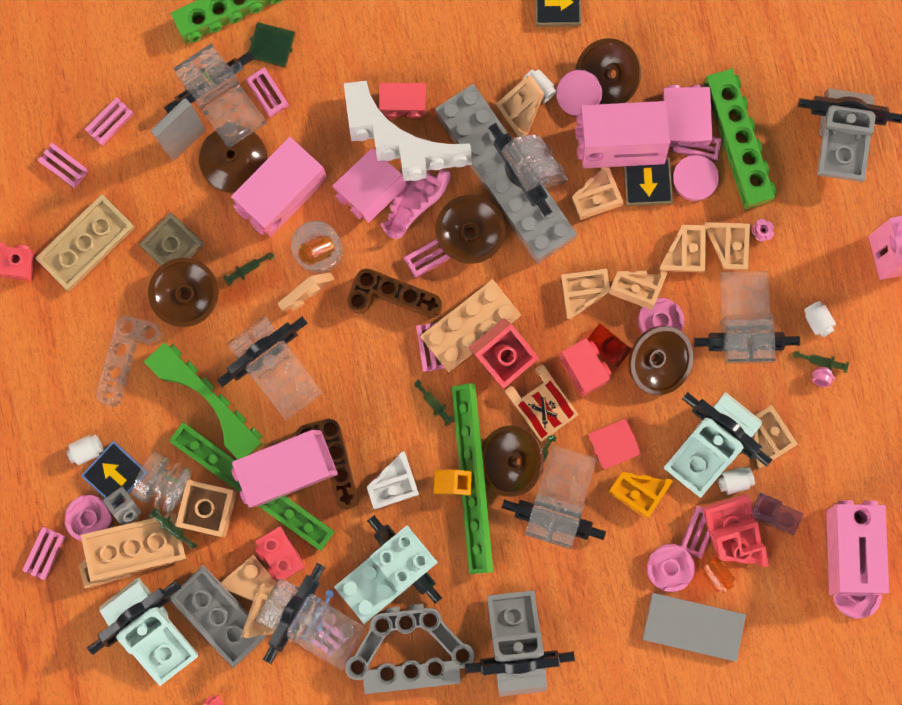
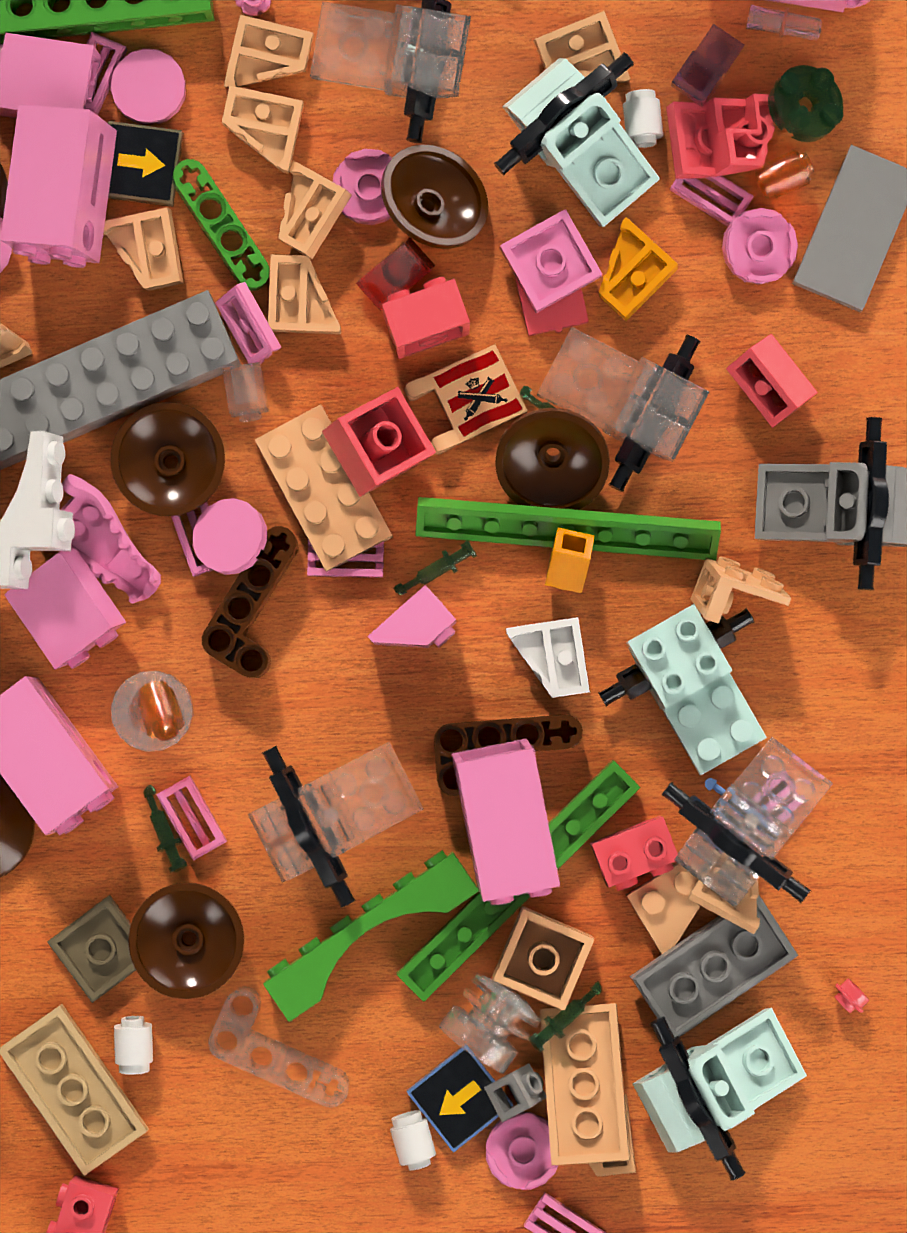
camera: 85 degrees left, 5 degrees up
(116, 273) = (133, 1045): none -> white brick
(264, 290) = (205, 811): none -> bright pink tile
(305, 290) = (218, 735): light nougat wing -> none
(397, 395) = (416, 623): none -> bright pink slope
(430, 274) = (229, 536): none -> bright pink tile
(440, 631) = (867, 620): light grey brick -> none
(460, 582) = (717, 578): none -> light nougat bracket
(520, 268) = (246, 391): none -> clear brick
(529, 166) = (86, 343): clear piece -> none
(561, 262) = (251, 323): none -> bright pink tile
(587, 588) = (771, 380): none -> coral brick
(621, 238) = (217, 227): none -> bright green beam
(635, 438) = (550, 261): none -> bright pink plate
(775, 590) = (820, 89): none -> clear green plate
(814, 558) = (783, 23): none -> clear axle

